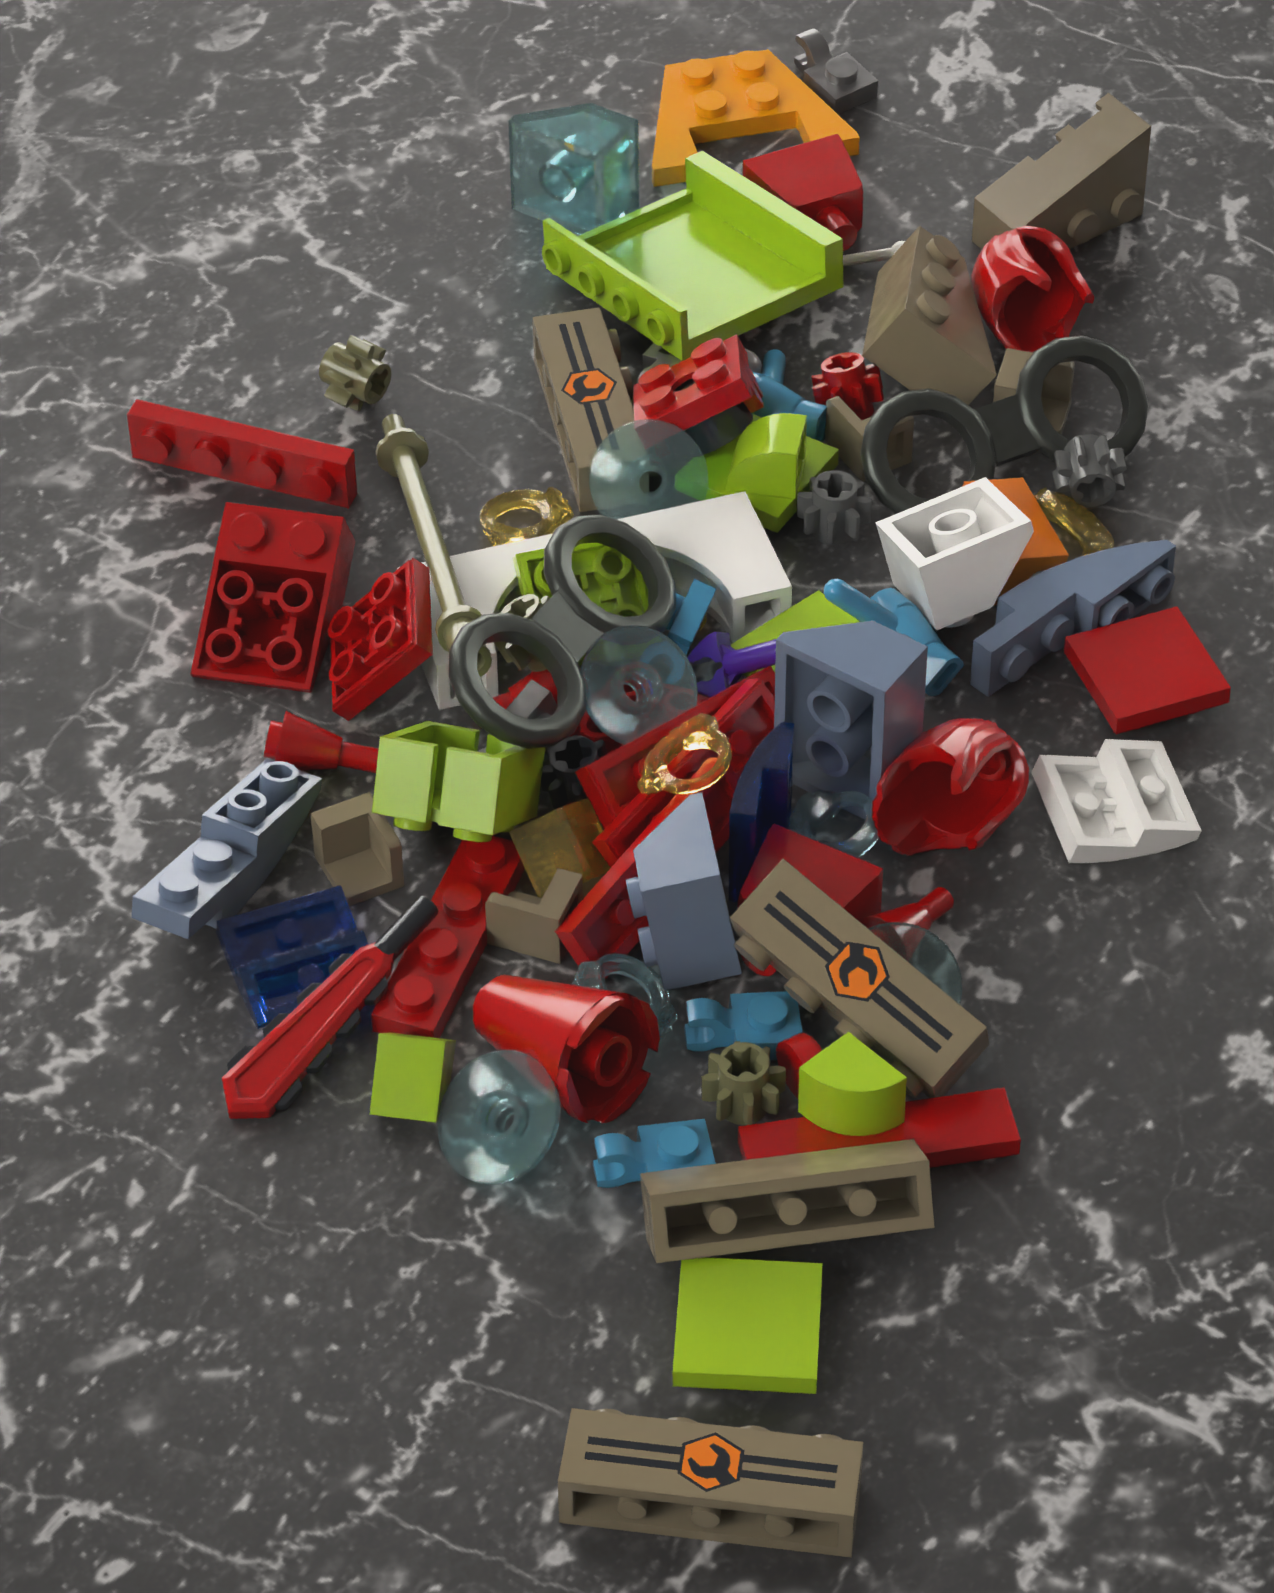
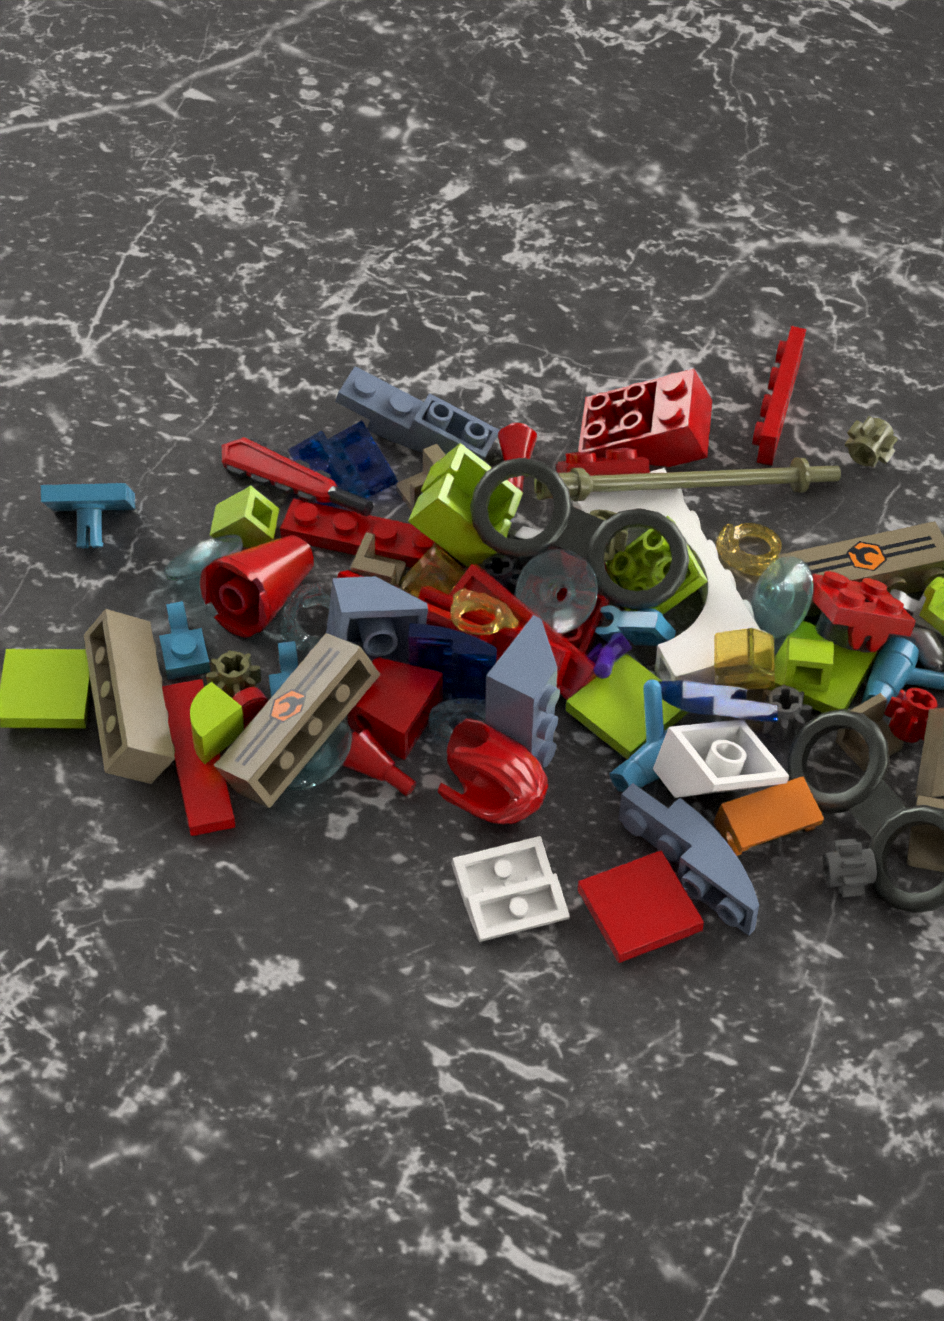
camera: 85 degrees right, 5 degrees up
(372, 1259) = (88, 502): none -> dark azure tile
(775, 512) = (744, 659): none -> clear yellow panel
(849, 550) = (716, 701): none -> clear blue slope
(1075, 520) = (783, 879): clear yellow piece -> none

